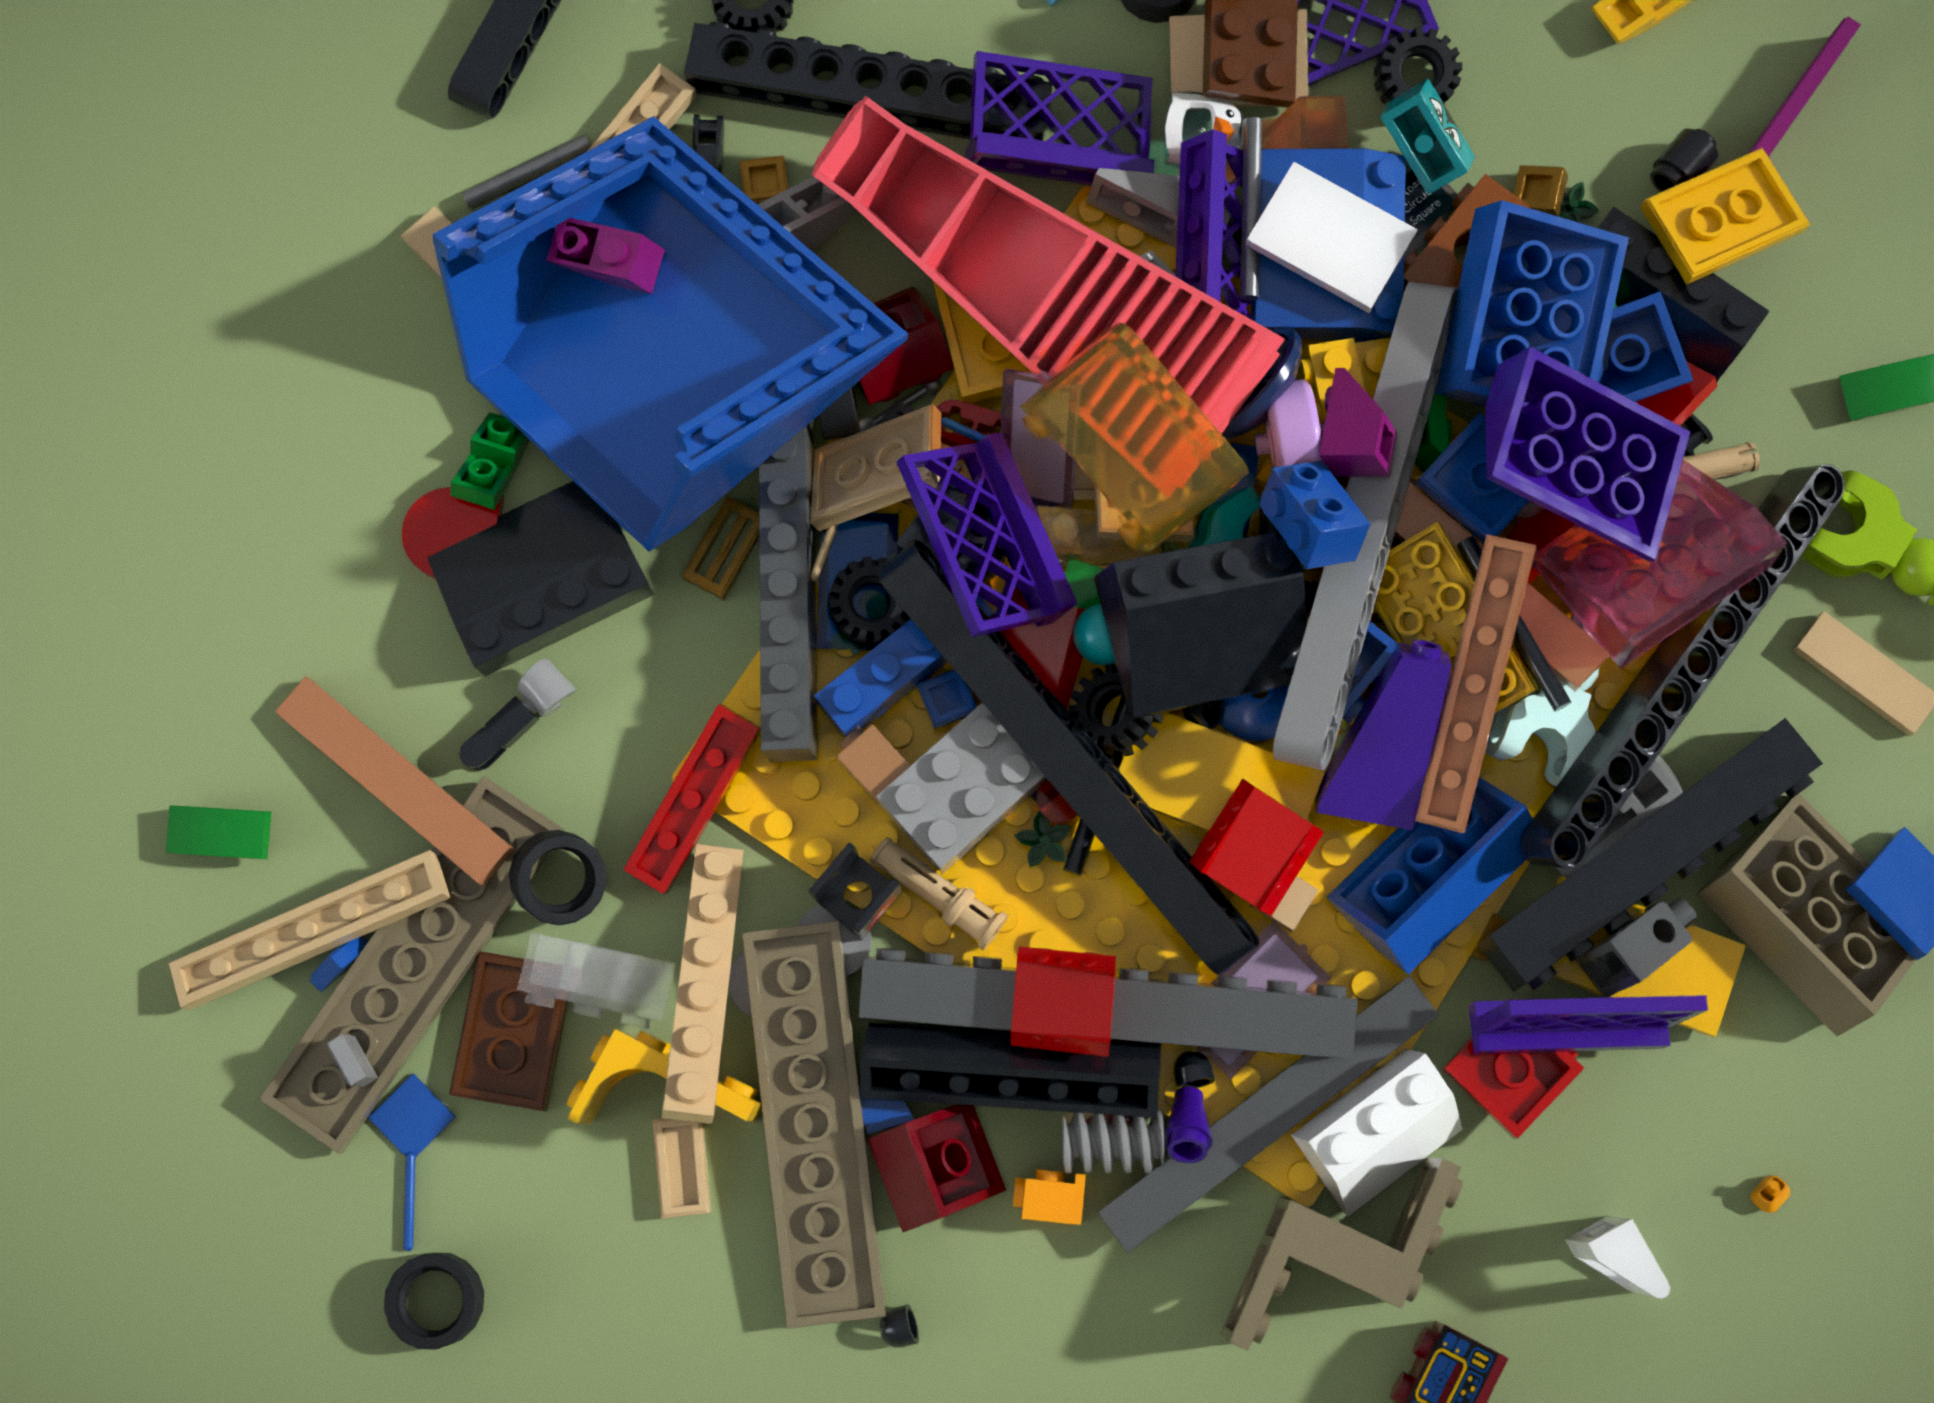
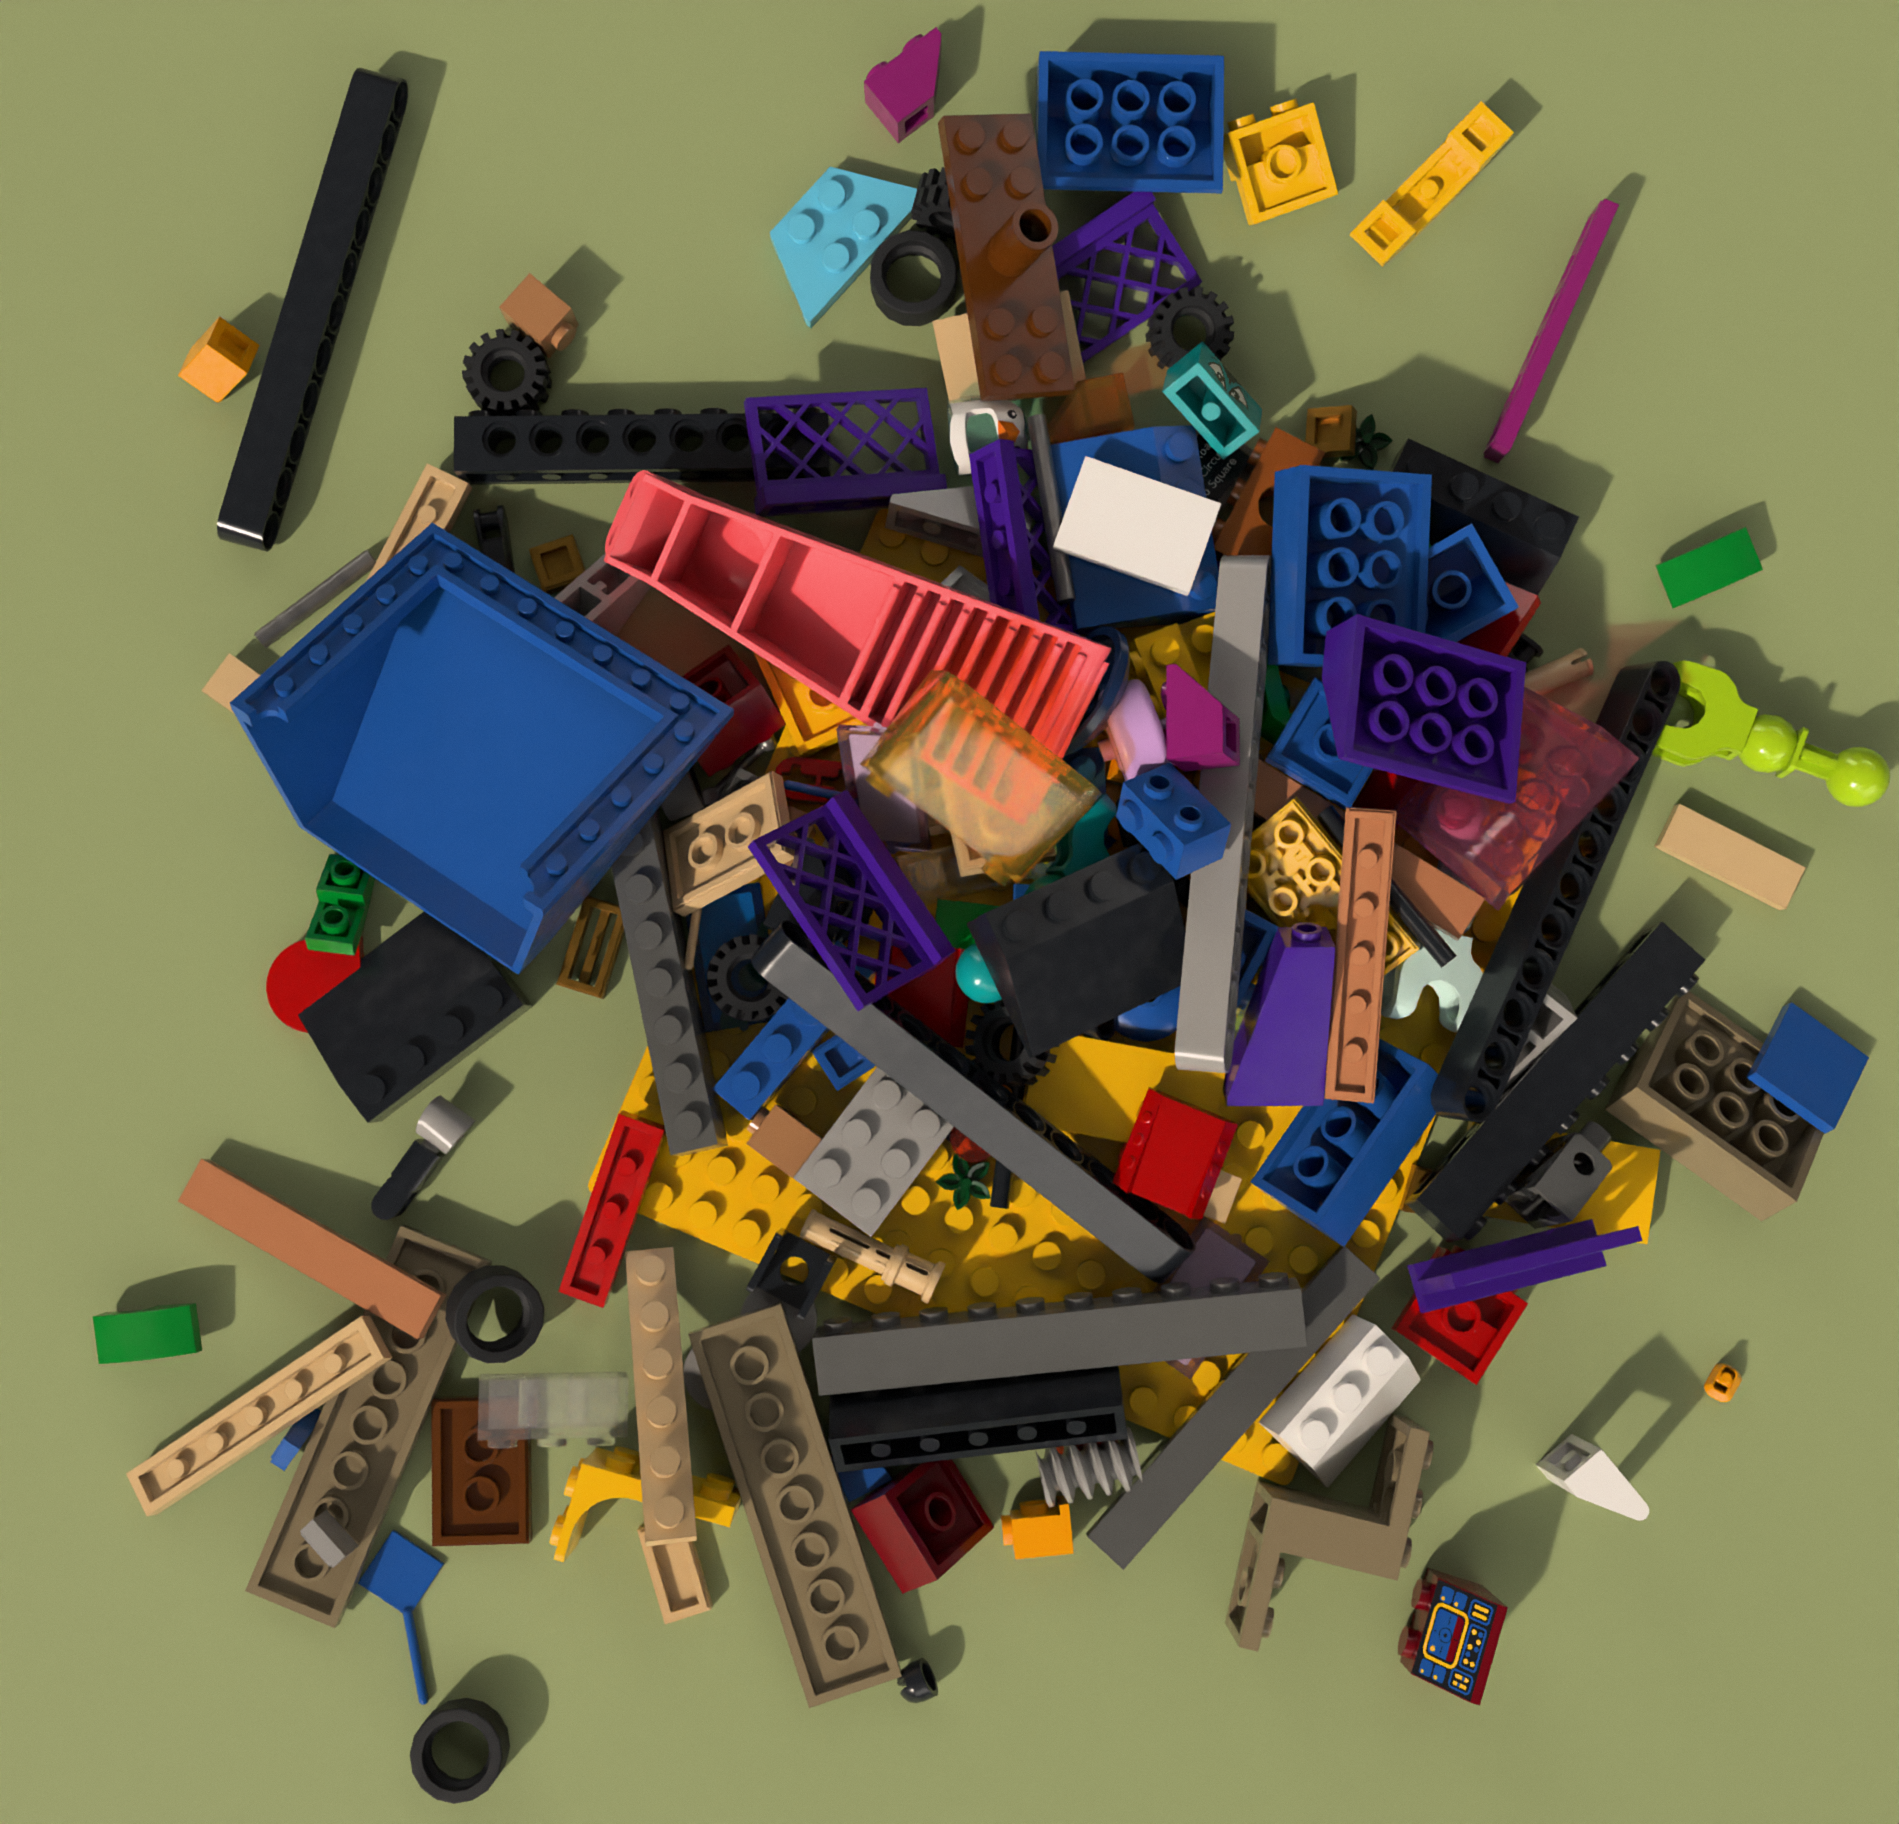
camera: 20 degrees left, 5 degrees up
(606, 254) = (413, 678): magenta slope -> none
(1063, 1001) = (1016, 1345): red slope -> none
(1188, 1130) = (1159, 1441): dark purple cone -> none
(1193, 1070) = (1152, 1379): black hinge -> none
(1684, 159) = (1468, 376): black brick -> none
(1724, 215) = (1519, 428): yellow tile -> none

